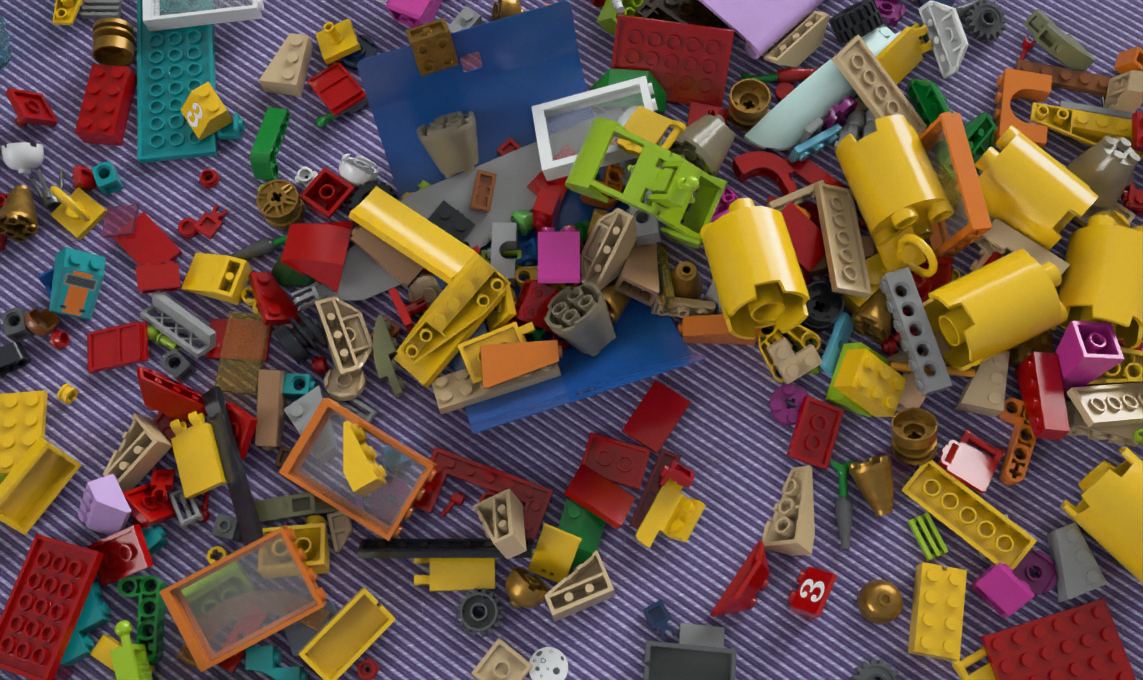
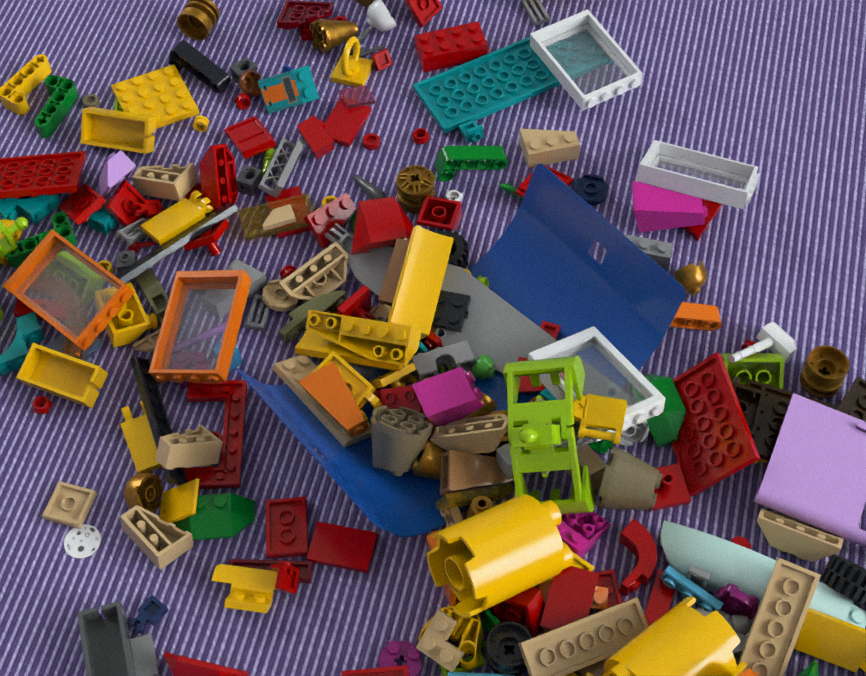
camera: 70 degrees right, 15 degrees down
(112, 182) = (388, 73): teal brick -> none
(113, 42) = (504, 26): pearl gold wheel -> none
(205, 111) = (475, 107): yellow slope -> none
(210, 224) = (379, 152): red plate -> none
(217, 277) = (334, 175): yellow slope -> none
(250, 347) = (279, 217): none -> tan tile
(270, 409) = (249, 247): medium nougat slope -> none
(293, 380) = (263, 262): teal brick -> none
(299, 337) = (301, 244): black wheel -> none
(337, 40) = (590, 168): yellow tile -> none
(357, 170) = (473, 227): white cylinder -> none
(359, 461) = (199, 315): yellow slope -> none
(432, 47) = (585, 210): pearl gold bracket -> none
(451, 142) = (524, 278): dark tan cone -> none
(456, 498) = (208, 416): red hand -> none
(467, 609) = (106, 458): dark grey gear -> none
(483, 191) = (495, 323): dark orange plate -> none
(546, 209) = (491, 376): red brick -> none
(599, 496) = (244, 520): red tile -> none
(748, 103) = (701, 509): pearl gold wheel -> none
(783, 75) = (755, 538): red piece -> none
(795, 197) = (616, 588): tan tile -> none

